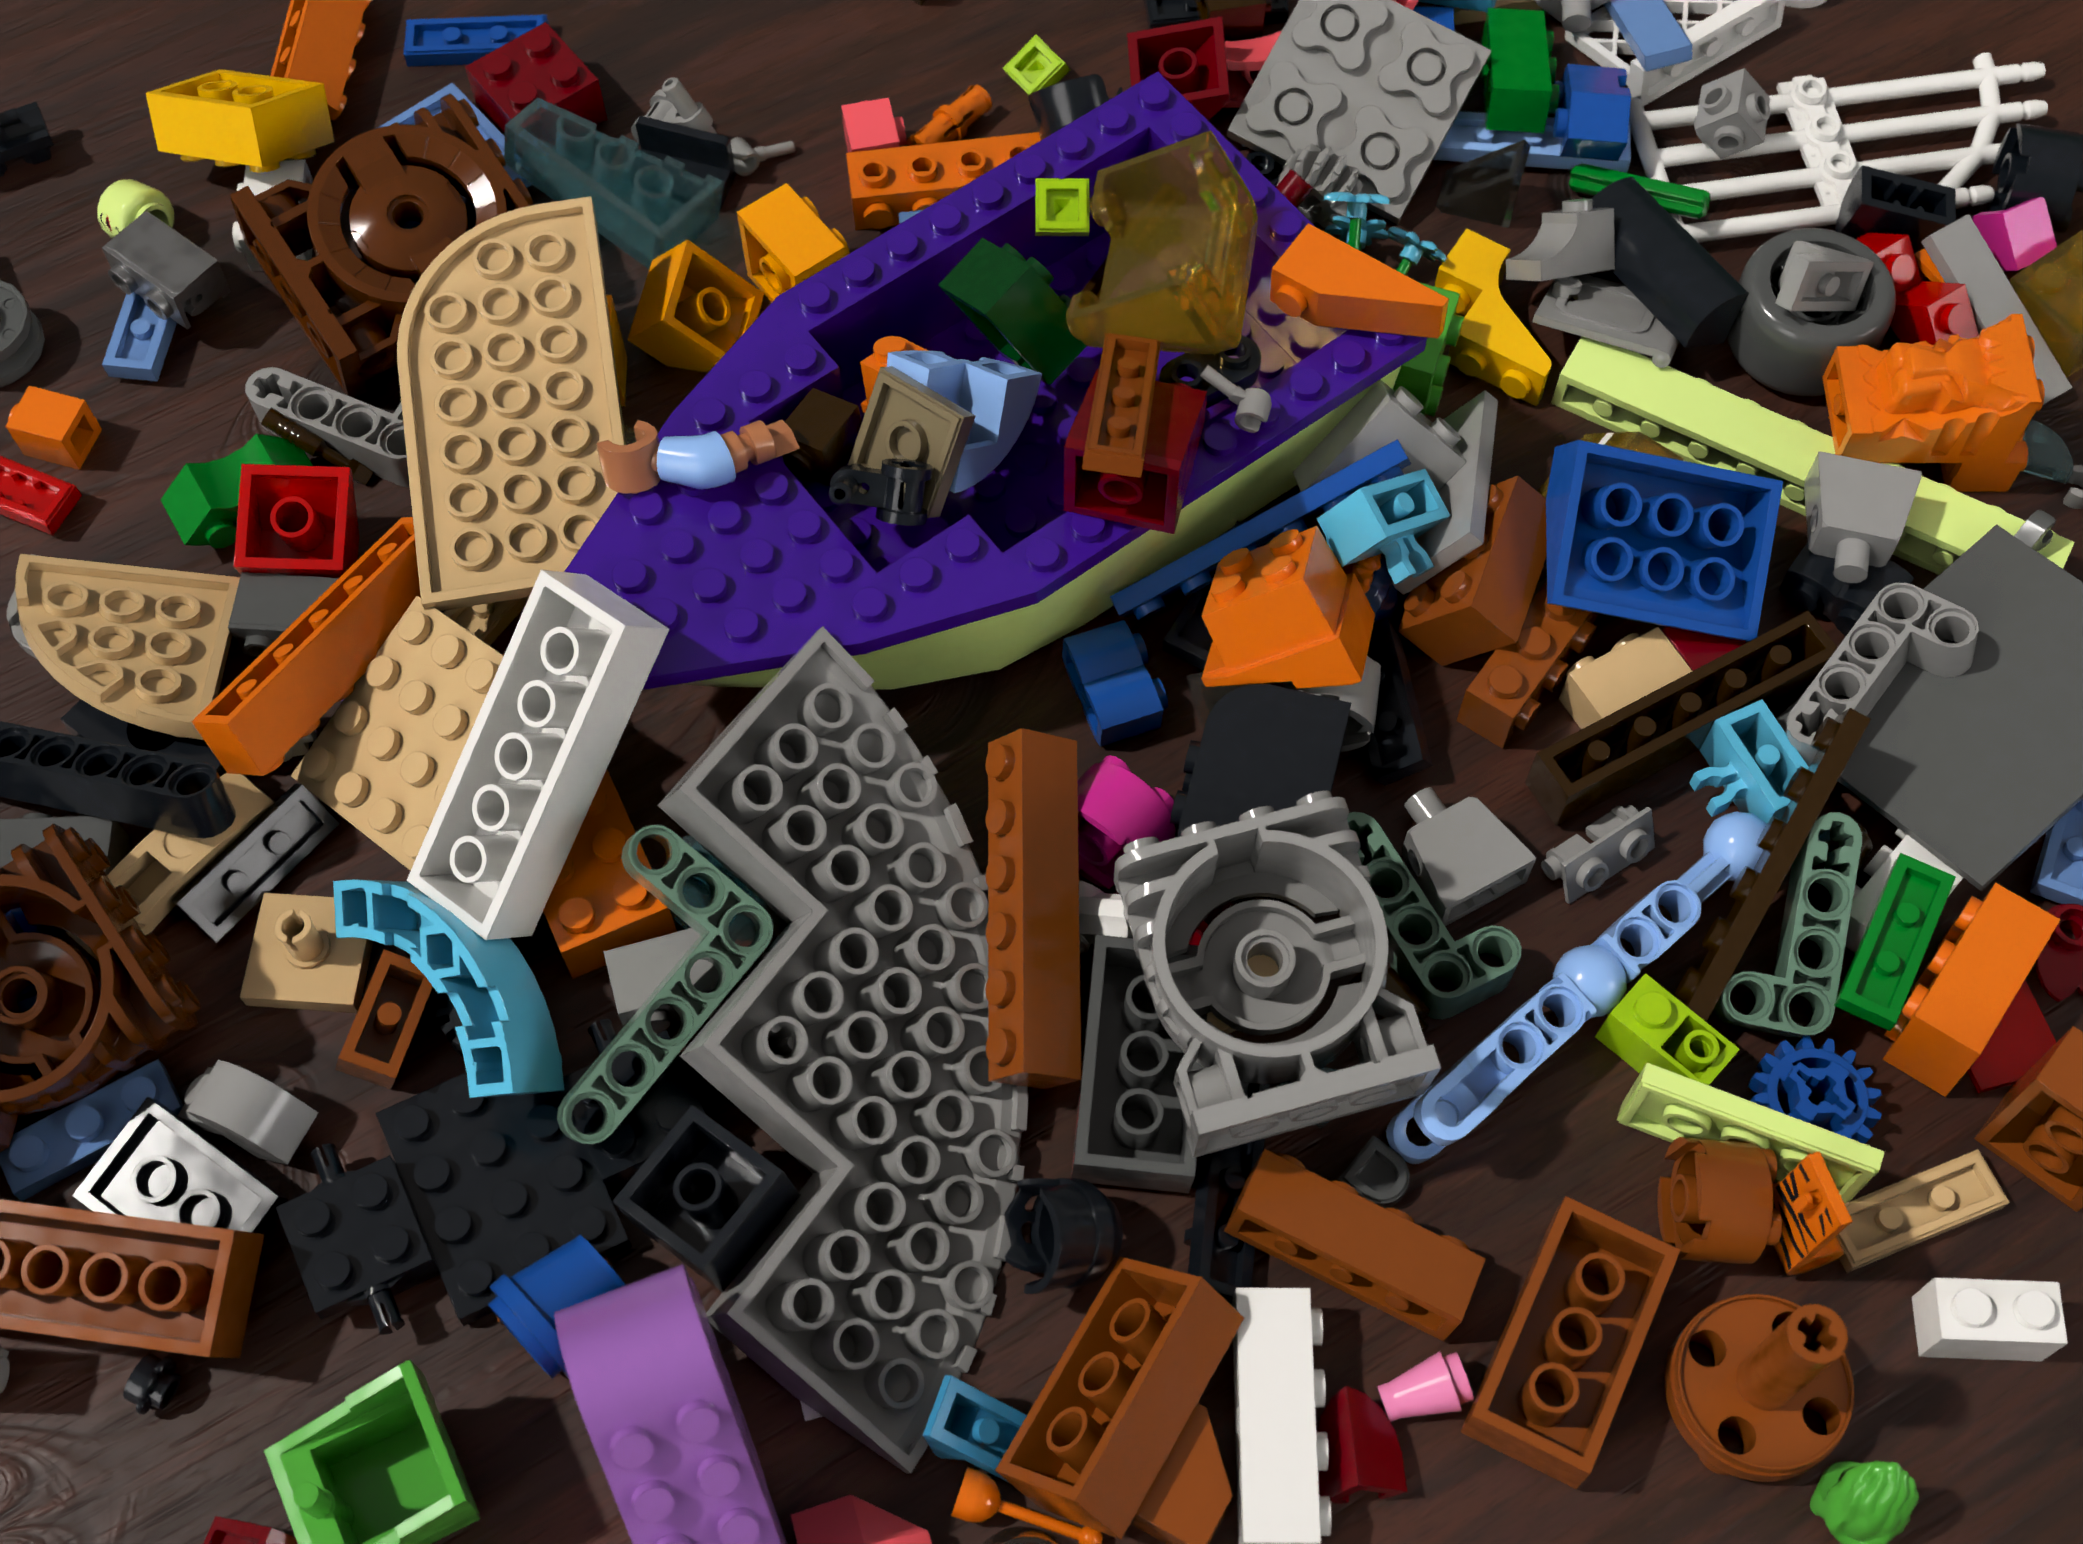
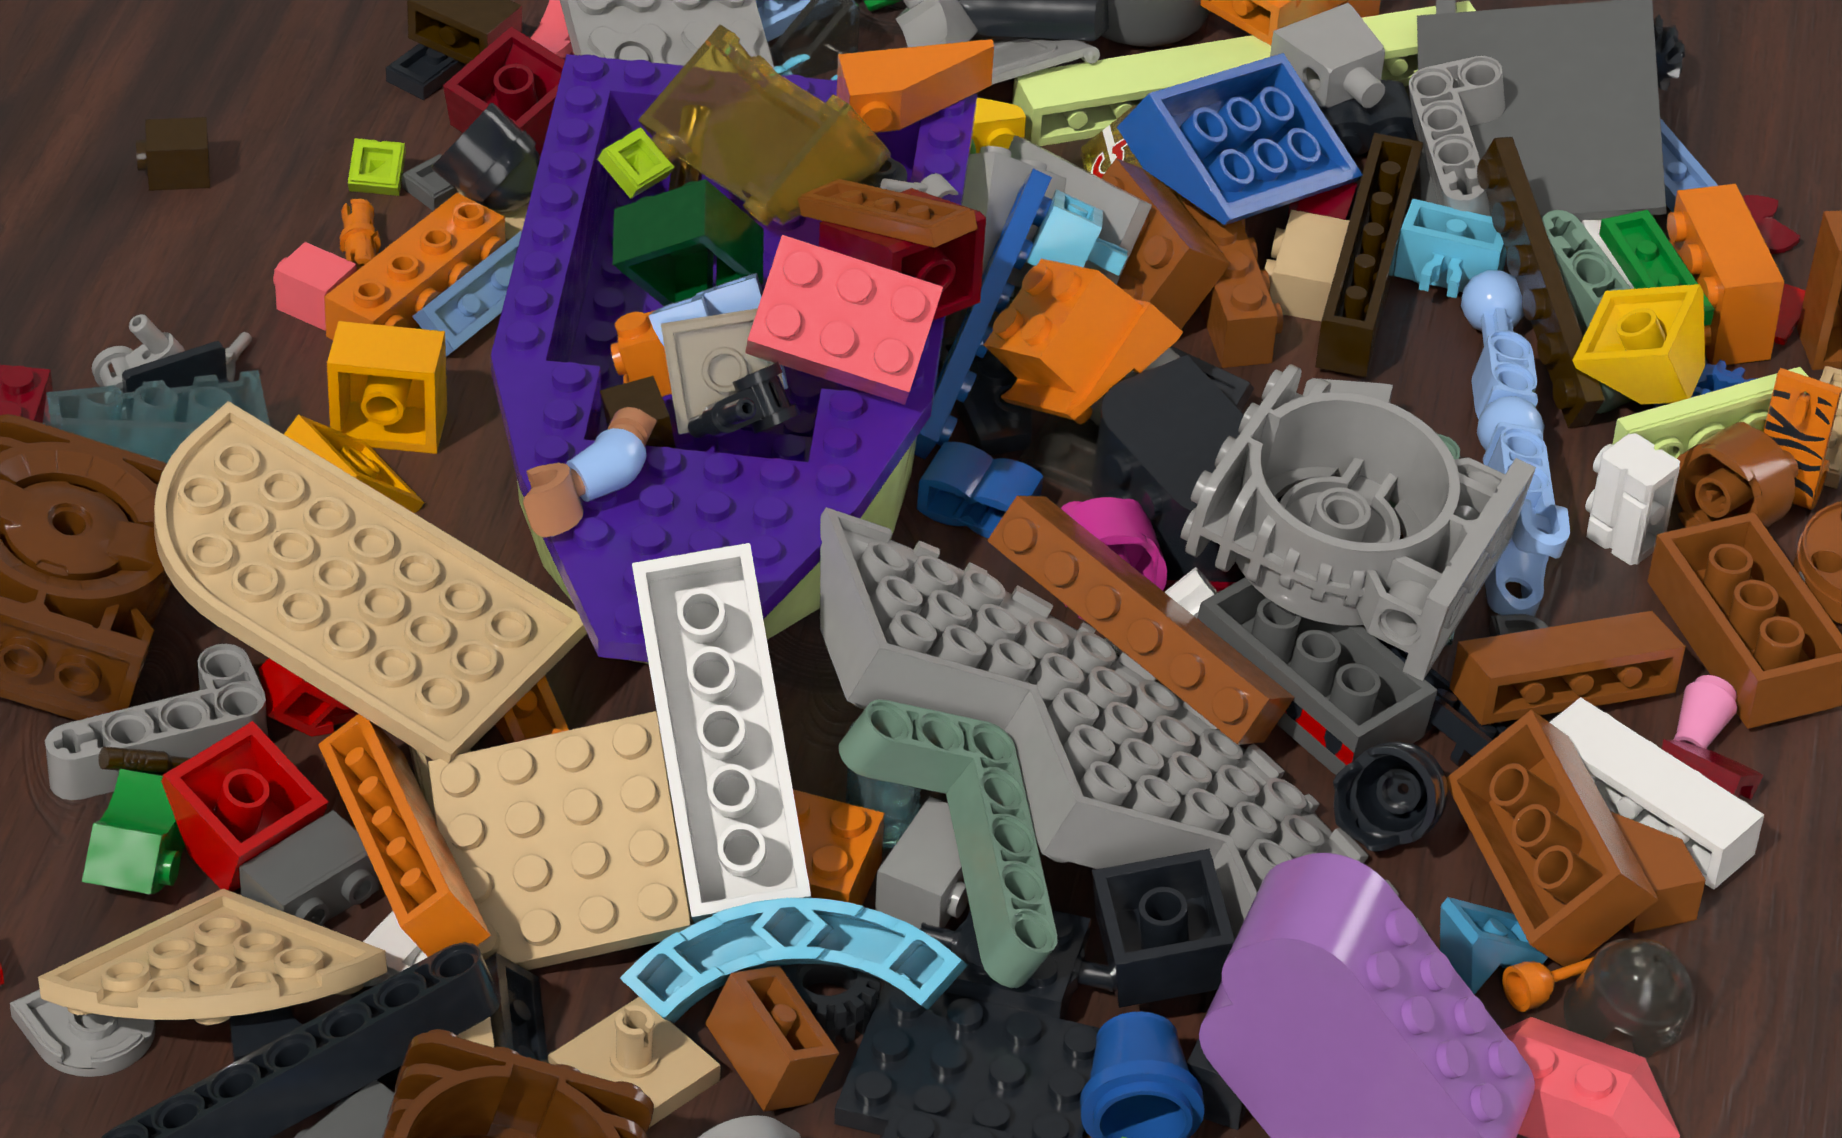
camera: 50 degrees left, 20 degrees down
(986, 474) = (843, 319): none -> coral brick
(1606, 1136) = (1631, 497): none -> white brick
(1619, 840) = (1412, 365): light grey hinge -> none
(1663, 1031) = (1581, 426): lime slope -> none
(1787, 1005) = (1647, 343): none -> yellow slope

